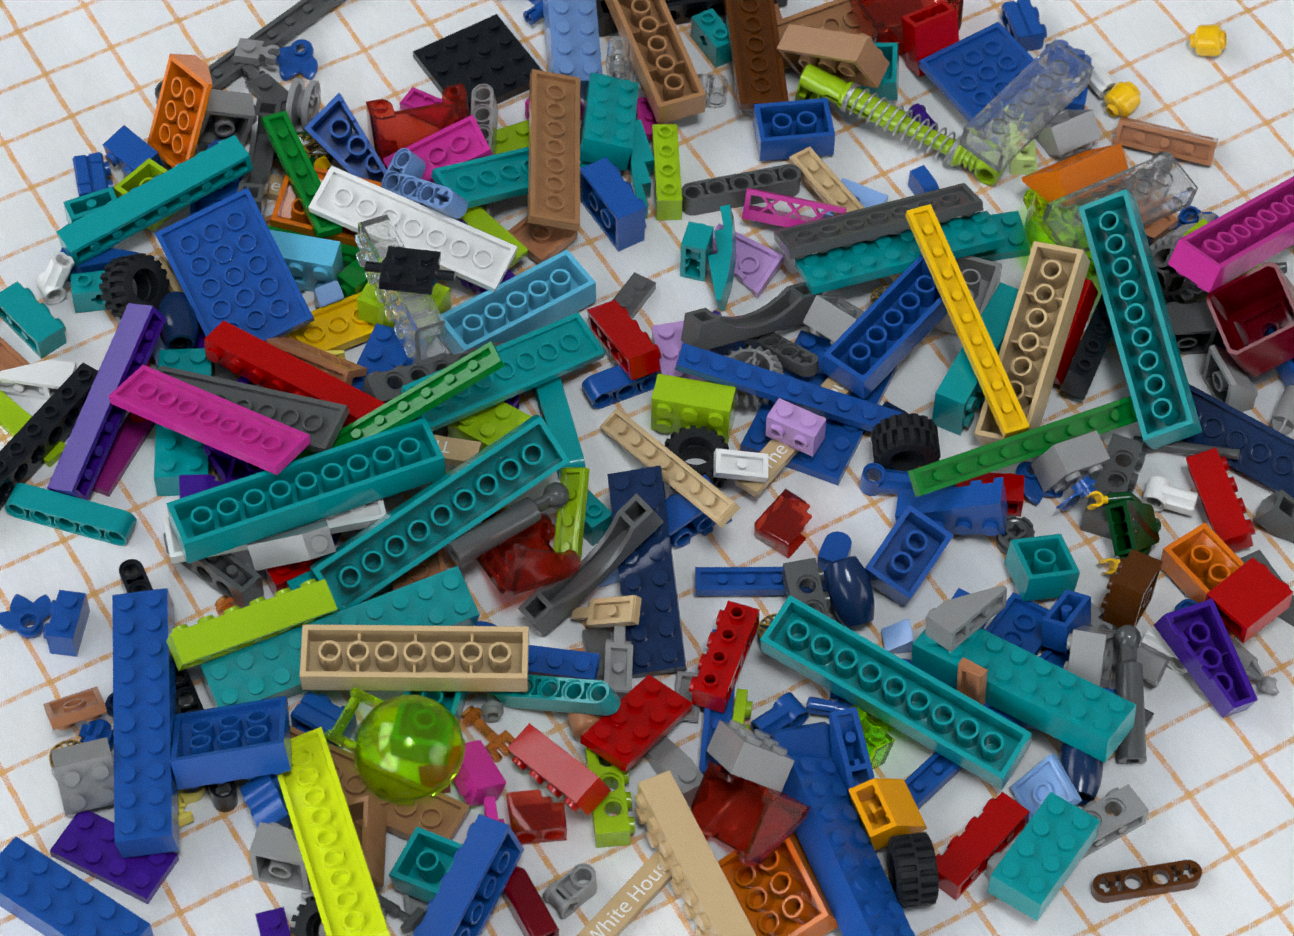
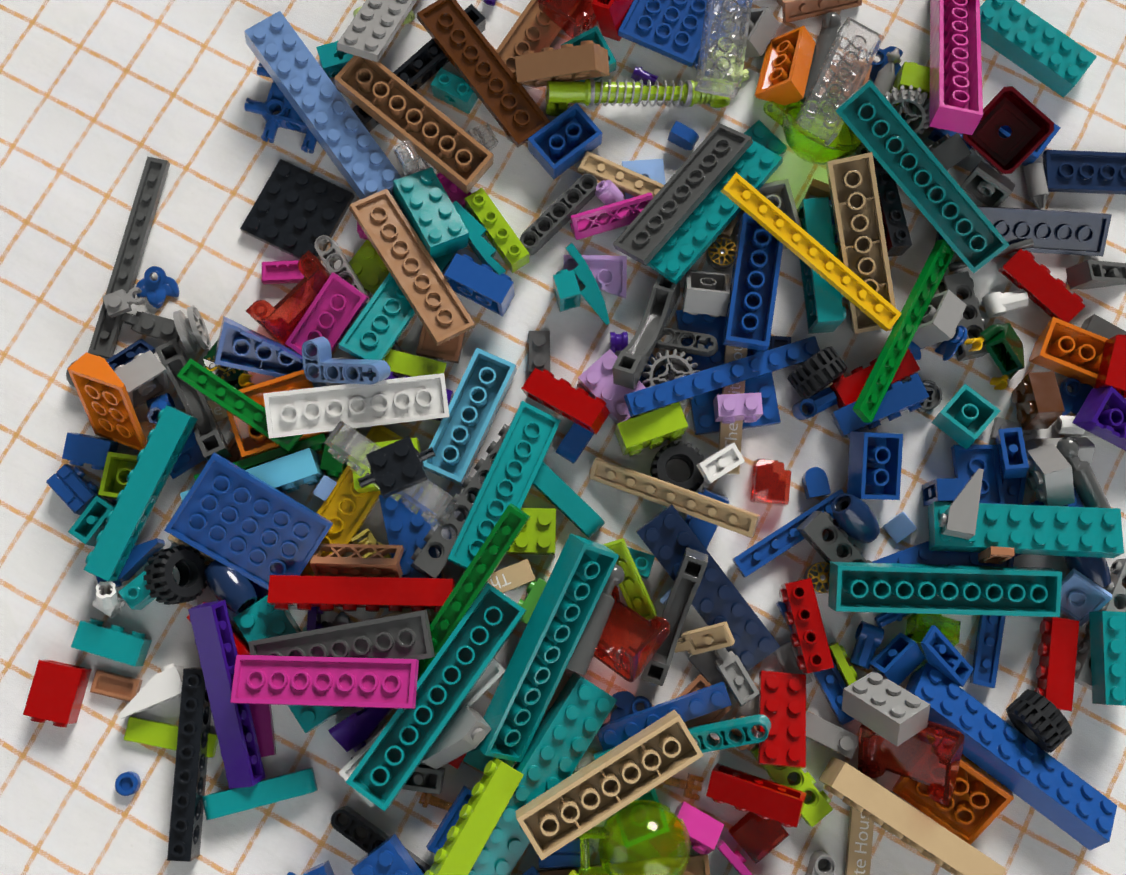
camera: 35 degrees left, 25 degrees up
(807, 190) = (608, 192): none -> lavender brick
(886, 809) = (994, 685): light orange slope -> none

